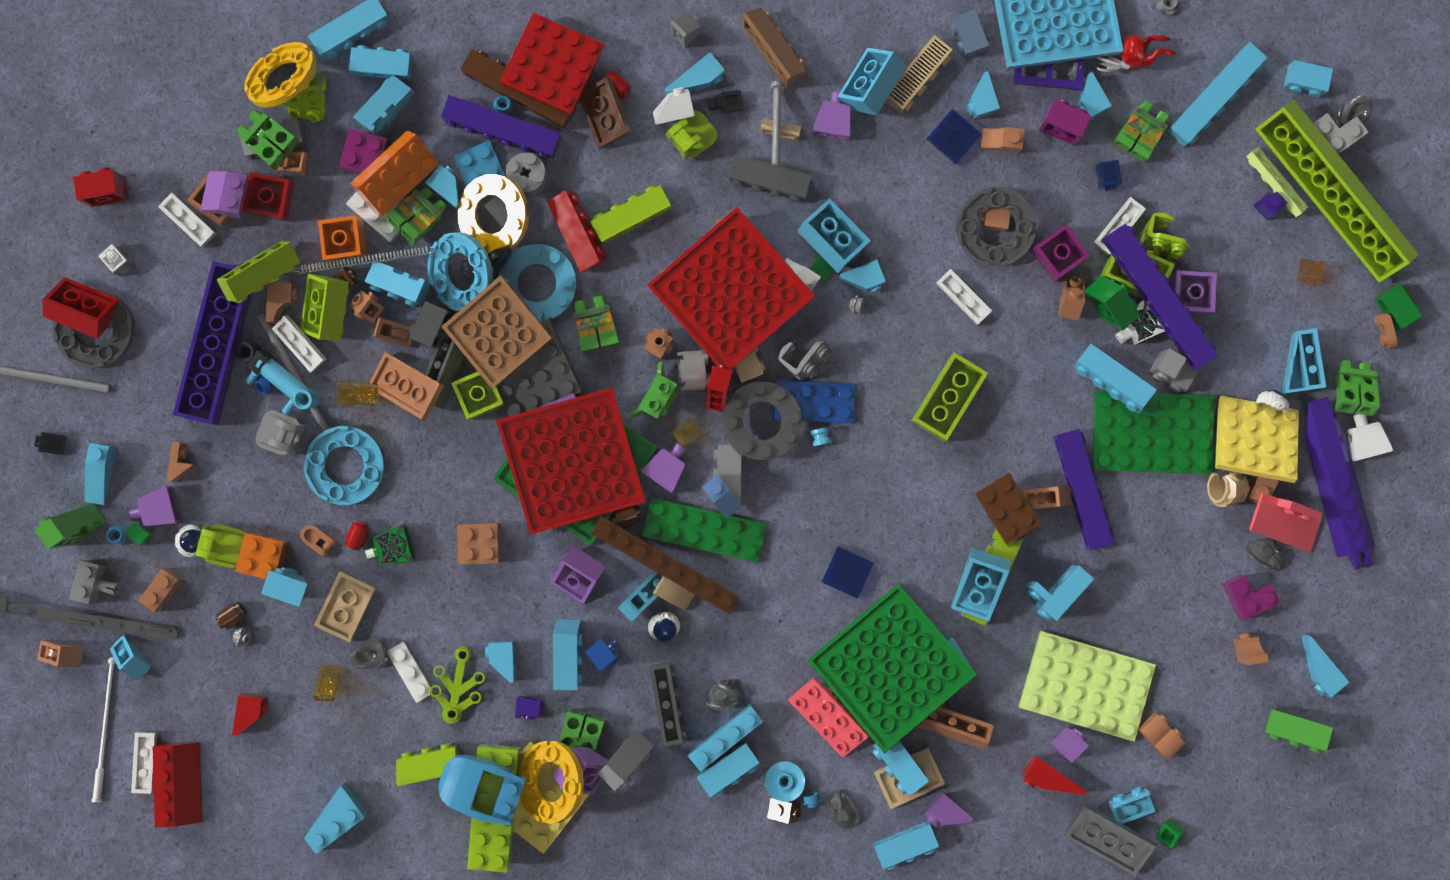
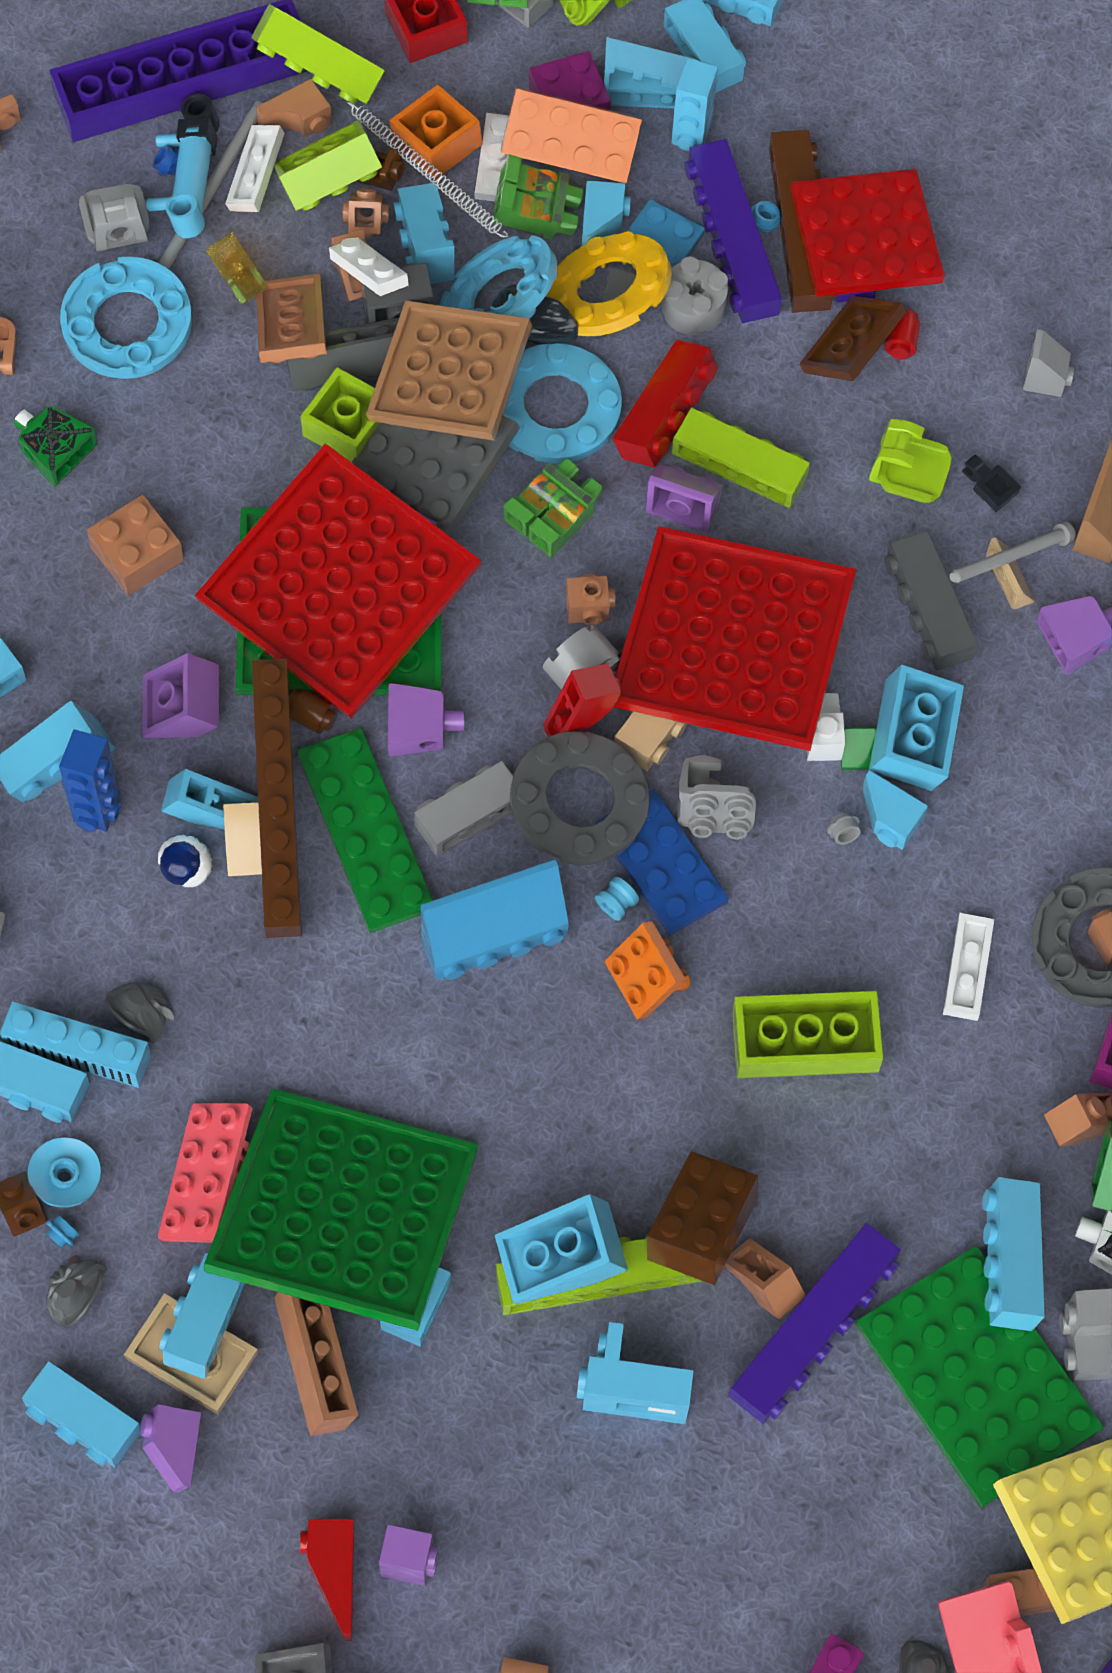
camera: 50 degrees right, 20 degrees down
(295, 163) = (496, 24): nougat slope -> none
(357, 535) = (39, 390): red brick -> none
(409, 331) = (368, 266): none -> white plate
(421, 99) = (694, 104): none -> medium azure brick
(634, 257) = (683, 497): none -> medium lavender slope
(658, 397) = (511, 641): bright green piece -> none
(666, 703) = (72, 929): dark grey brick -> none
(674, 106) = (933, 409): white slope -> none
(686, 432) = (488, 715): clear yellow panel -> none
(700, 76) = (998, 426): medium azure slope -> none
(721, 496) = (431, 804): medium blue slope -> none
(800, 505) = (494, 921): none -> dark azure slope
(847, 572) = (443, 1063): clear blue plate -> none
(868, 449) = (646, 970): none -> orange plate
(1087, 686) = (518, 1536): yellowish green plate -> none
(1227, 490) = (979, 1540): tan helmet -> none

